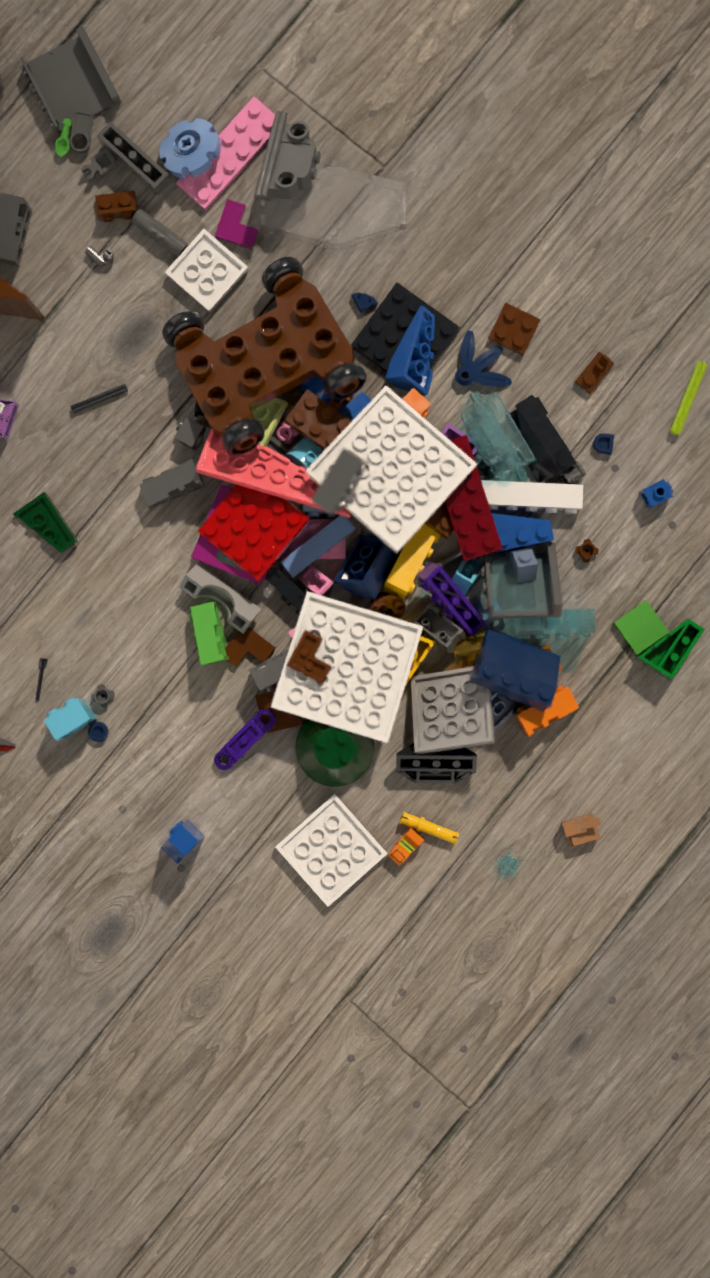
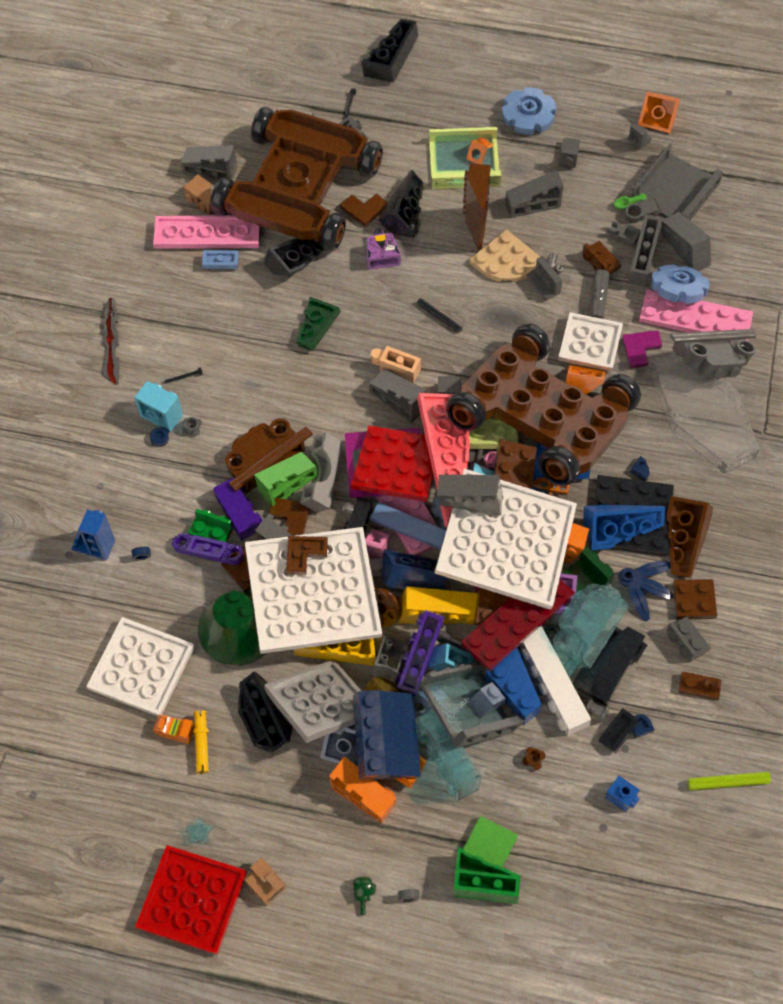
camera: 65 degrees right, 25 degrees down
(68, 298) = (505, 259): none -> tan plate
(115, 275) = (545, 279): none -> dark grey bracket
(138, 469) = (397, 362): none -> light nougat brick
(143, 110) = (688, 241): none -> dark grey wedge
(169, 643) = (261, 449): none -> reddish brown brick
(216, 692) = (237, 509): none -> dark purple brick
(217, 803) = (141, 553): none -> dark blue tile
(223, 727) = (211, 526): none -> green bracket
(246, 300) = (585, 378): none -> orange slope
(446, 409) = (590, 570): none -> dark green bracket
(448, 297) = (687, 527): none -> reddish brown wedge
(548, 357) = (688, 639): none -> dark grey bracket
(564, 896) = (191, 899): none -> red plate
(600, 465) = (618, 730): none -> black plate
(627, 750) = (363, 890): none -> dark green piece
(651, 716) = (408, 895): none -> dark grey tile

